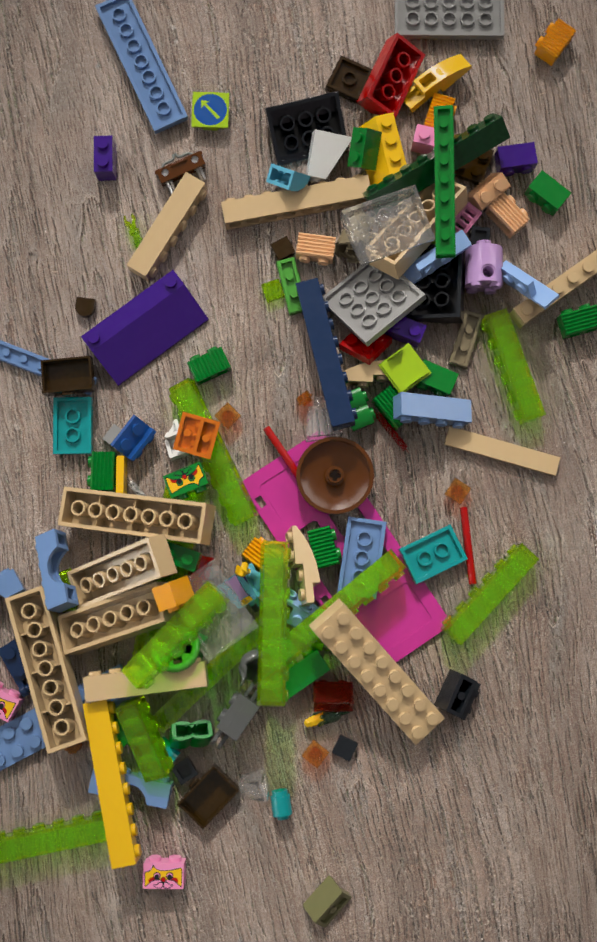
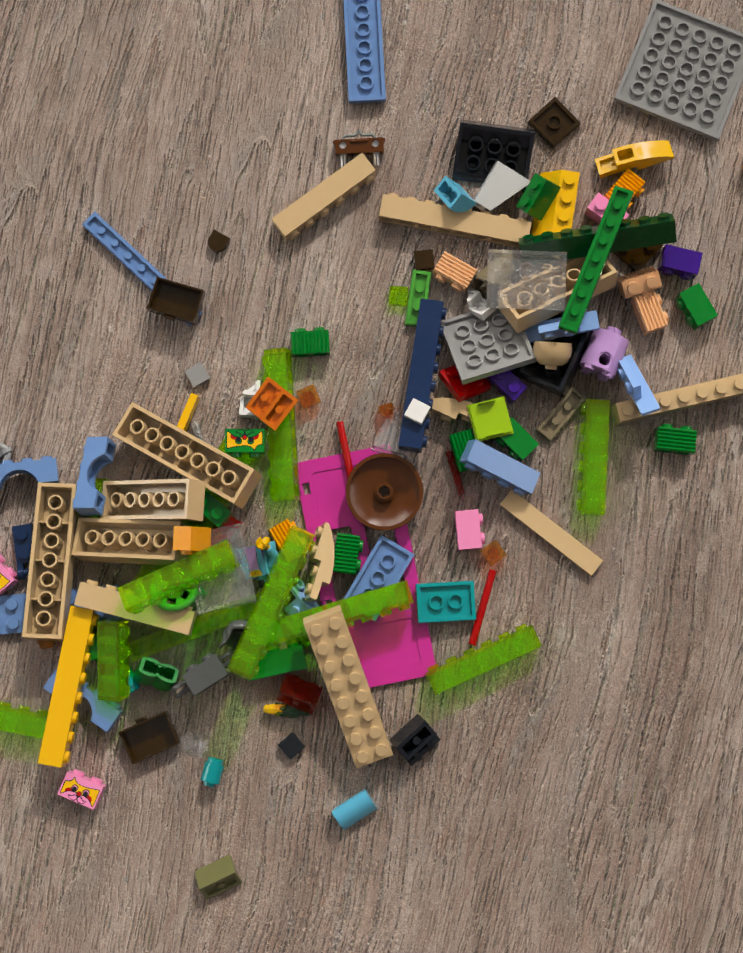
camera: 25 degrees right, 0 degrees up
(72, 425) = (162, 348): teal plate -> none
(102, 471) = (172, 402): green brick -> none
(105, 158) = (292, 109): dark purple brick -> none
(133, 438) = (213, 382): blue bracket -> none
(134, 231) = (291, 189): clear neon green piece -> none
(145, 327) = (265, 284): dark purple slope -> none
(185, 770) = (137, 705): black plate -> none
(210, 110) = (409, 101): piece -> none
(315, 753) = (262, 739): clear orange plate -> none
(336, 387) = (417, 411): none -> white tile
(350, 270) = (477, 304): none -> white slope
(365, 414) = (435, 447): green brick -> none
(391, 76) = (593, 137): red slope -> none
(426, 478) = (468, 529): none -> bright pink brick
(427, 783) = (354, 809): none -> medium azure brick
(438, 285) = (552, 353): none -> tan cylinder
(471, 211) = (617, 294): bright pink slope -> none
(479, 233) = (615, 320): black plate -> none

